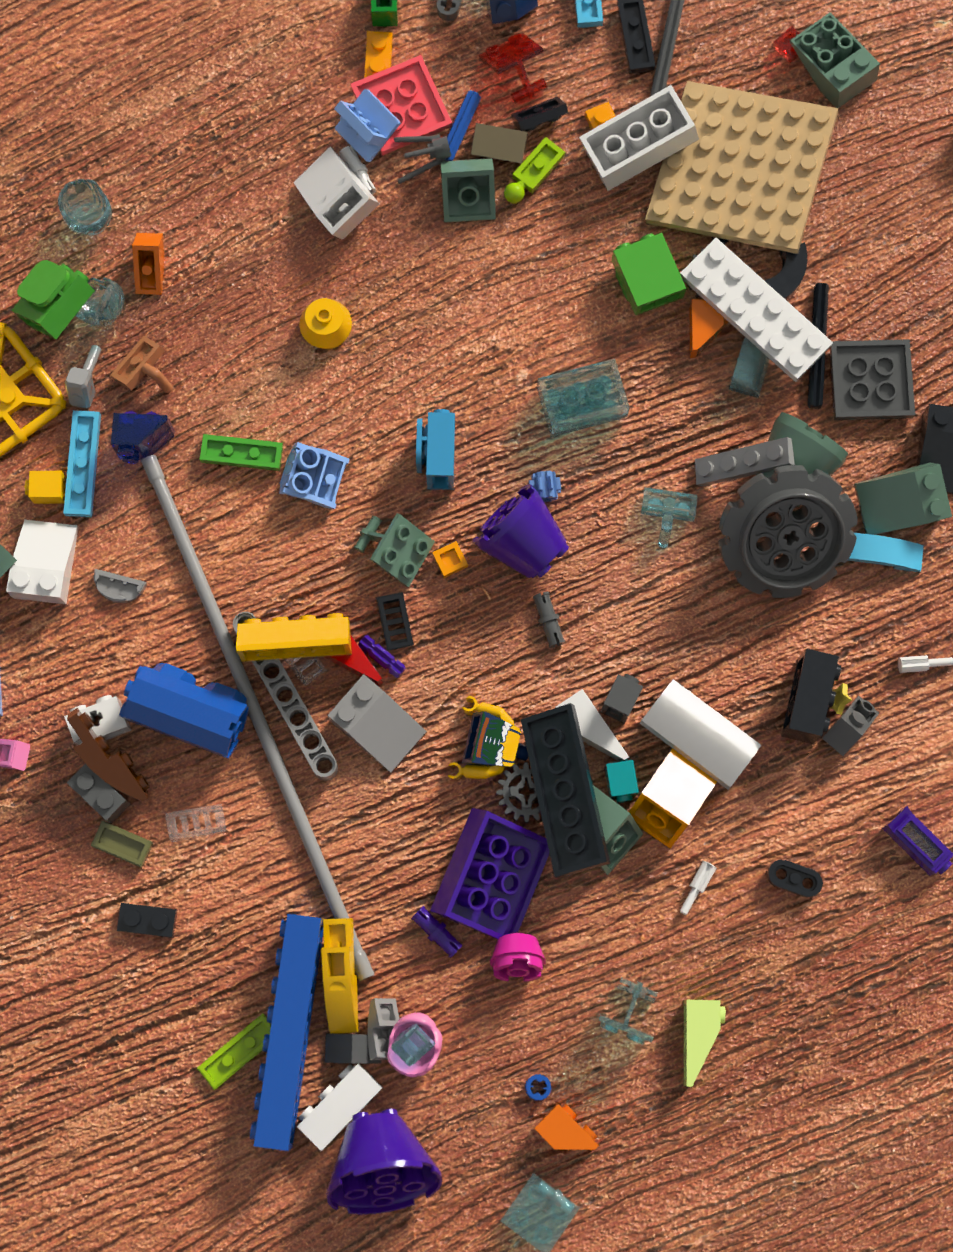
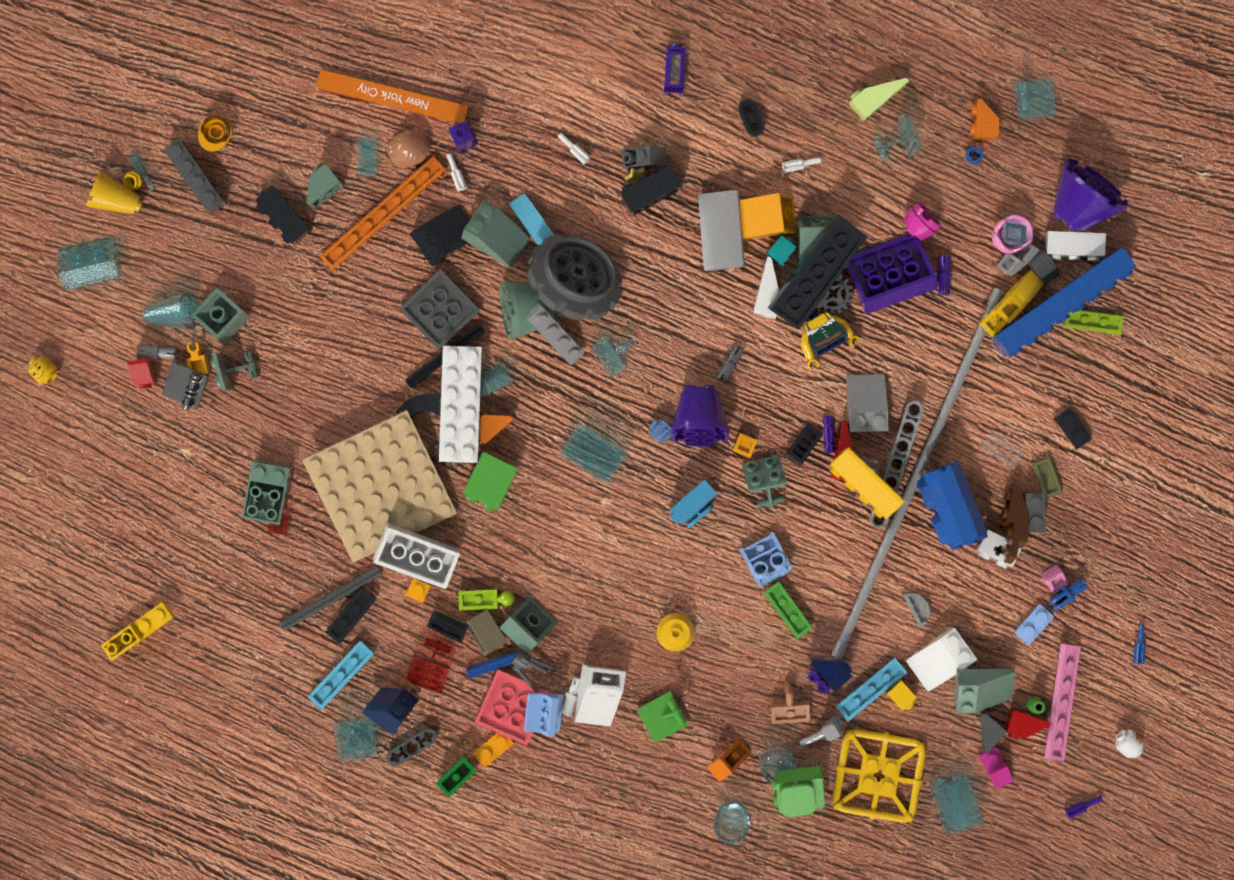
camera: 125 degrees left, 10 degrees up
(254, 238) = (662, 717): none -> bright green plate
(622, 698) = (739, 287): dark grey brick -> none

